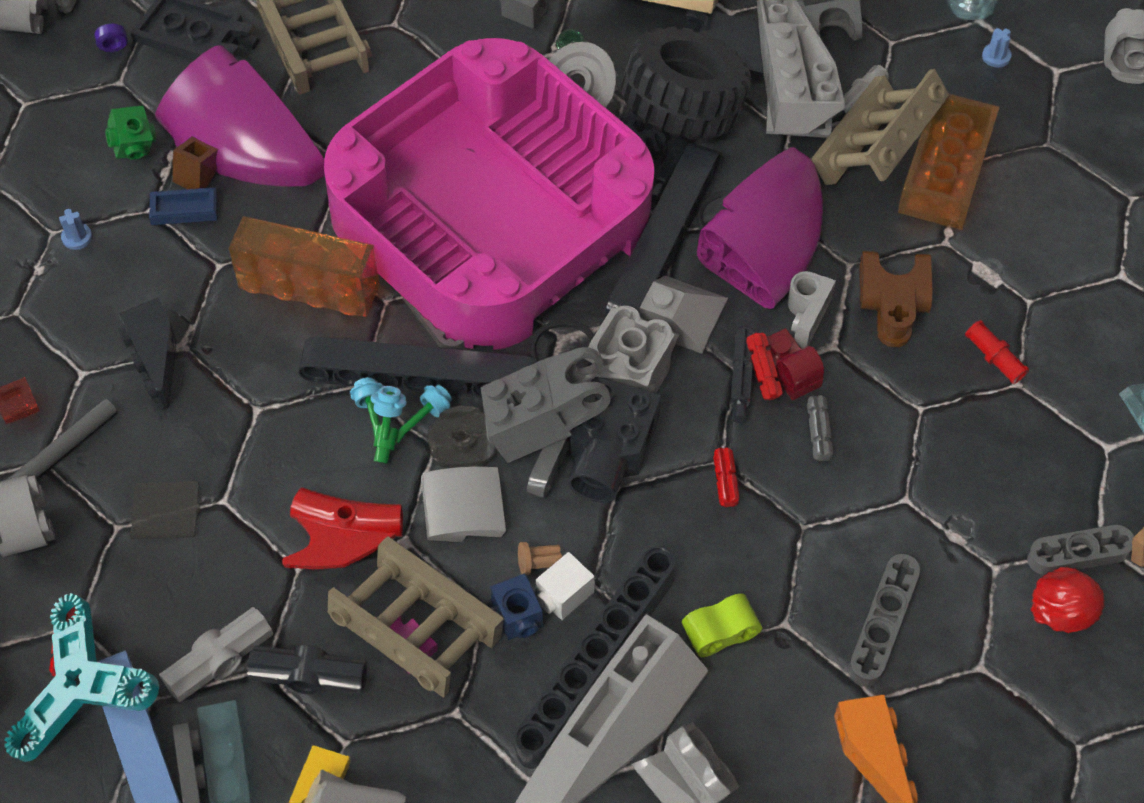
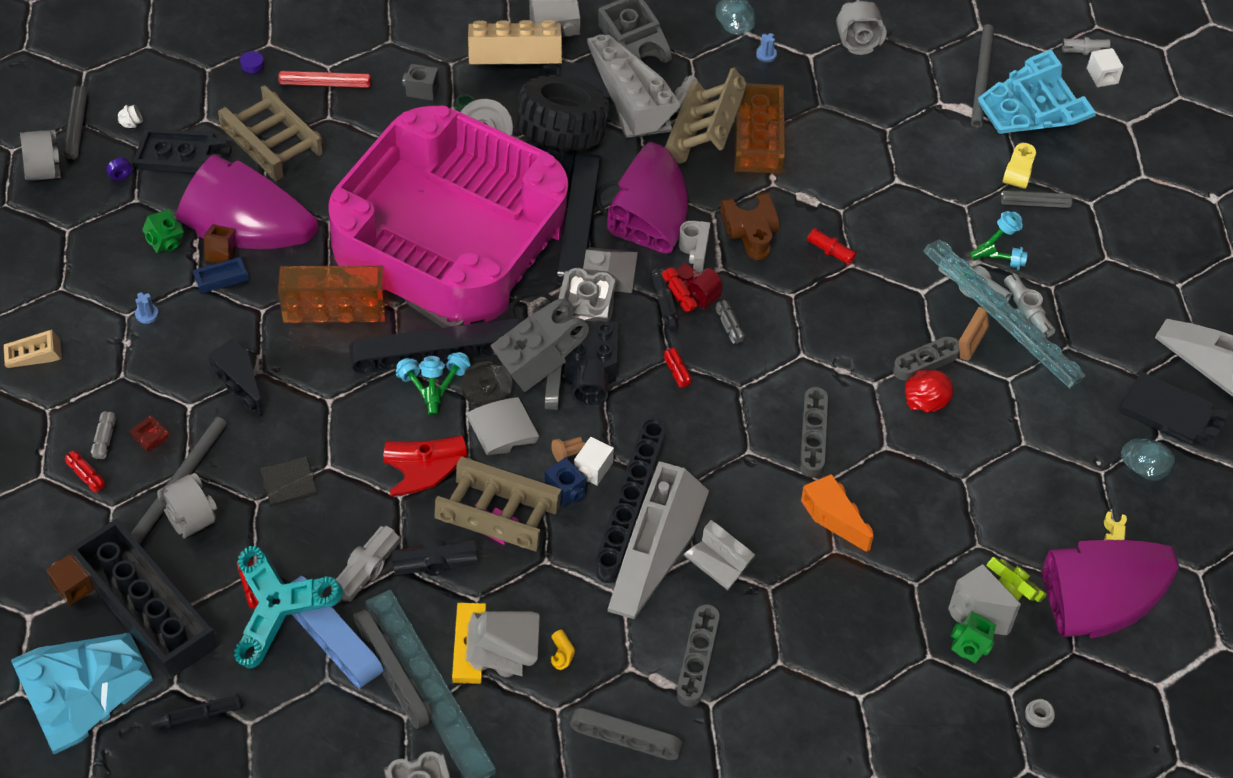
camera: 20 degrees left, 5 degrees down
(721, 625) = (708, 459): lime axle -> none

